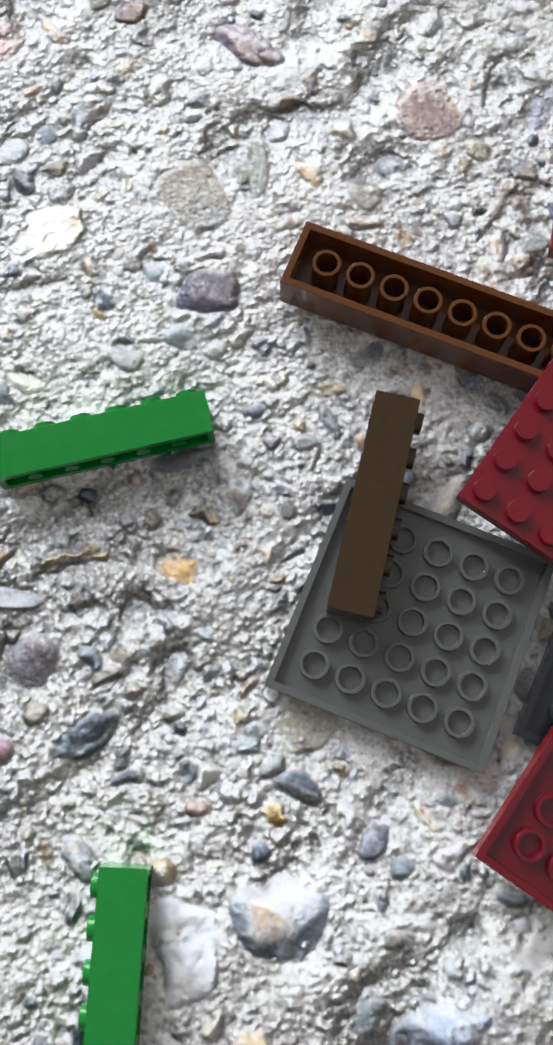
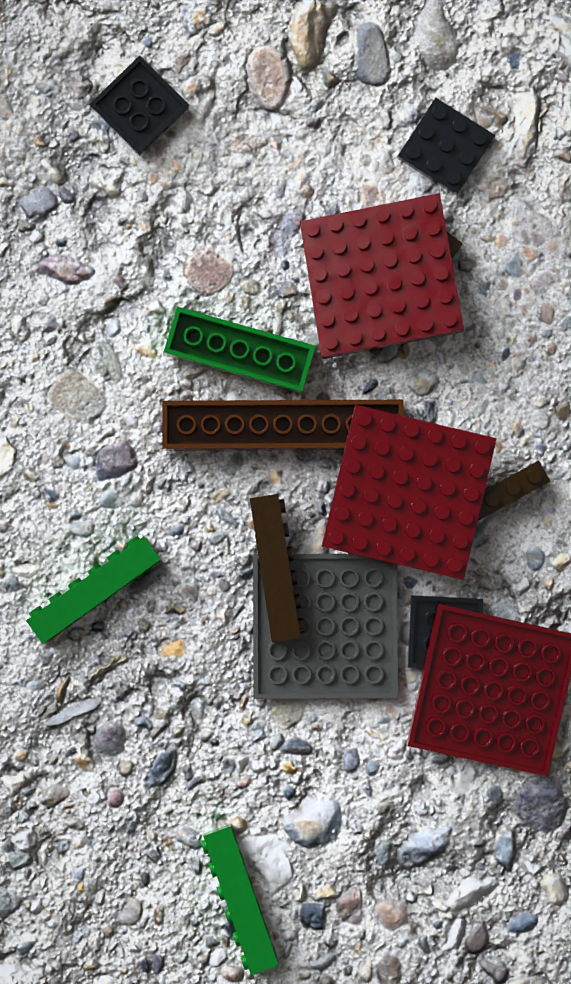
camera: 20 degrees left, 10 degrees up
(436, 205) = (239, 350): none -> green brick

